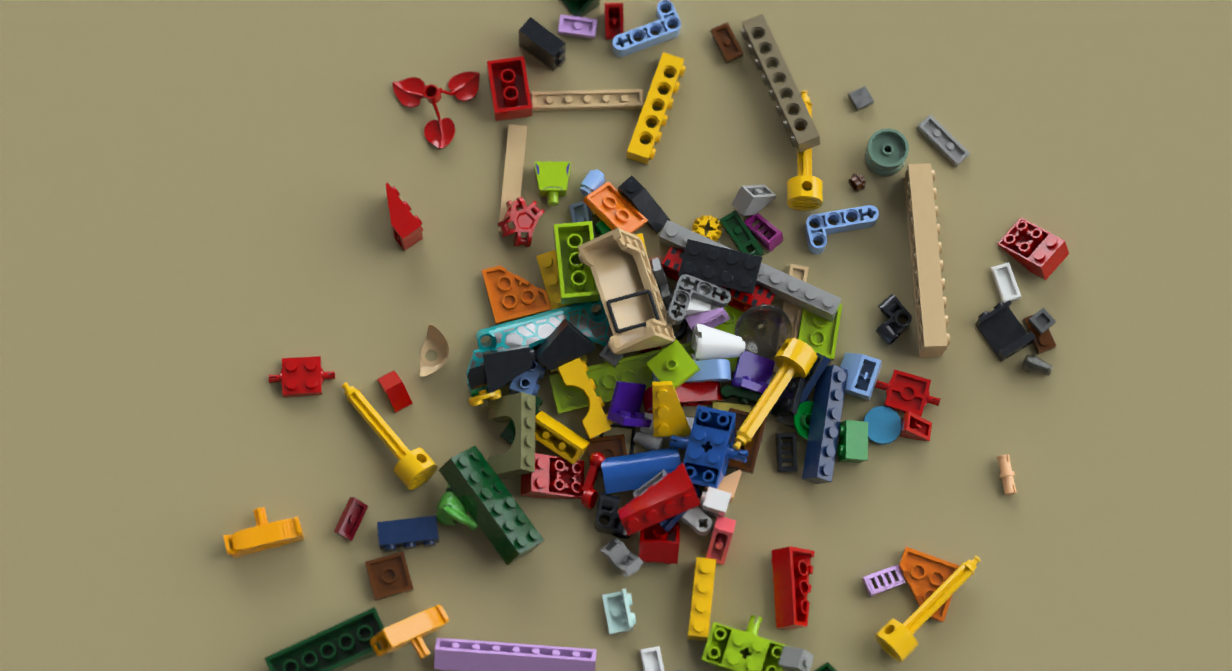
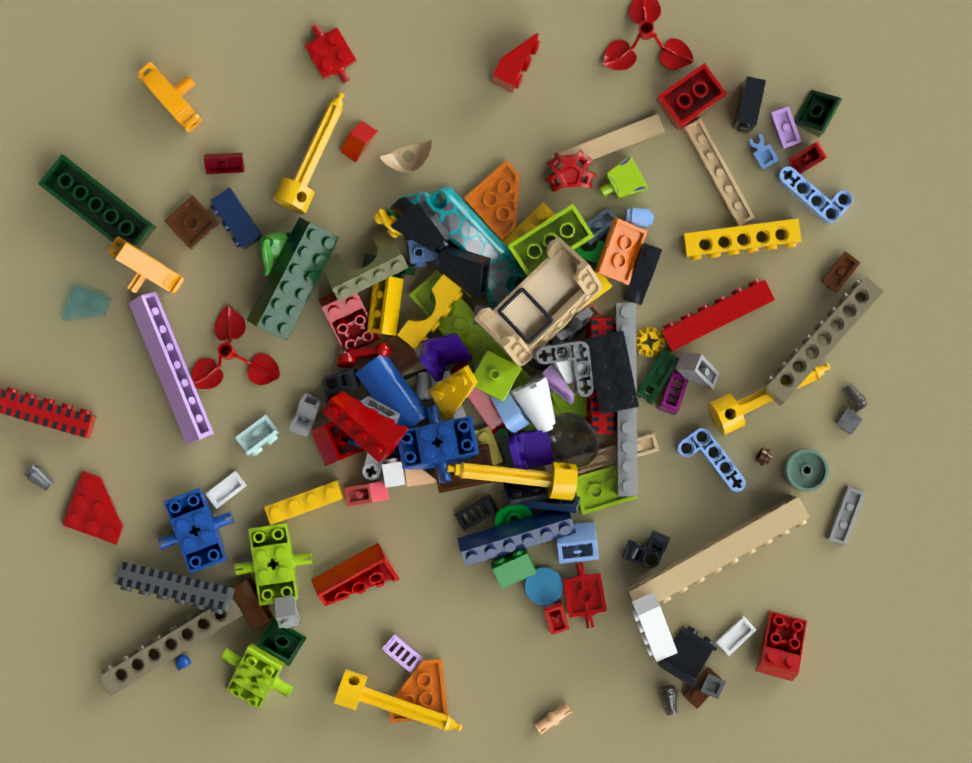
camera: 65 degrees right, 15 degrees up
(503, 589) = (227, 327): none -> red plant
(592, 55) = (764, 155): none -> medium blue plate
(713, 160) = (717, 315): none -> red brick
(843, 84) = (854, 398): none -> clear smoke cone
(966, 341) = (654, 626): none -> white brick

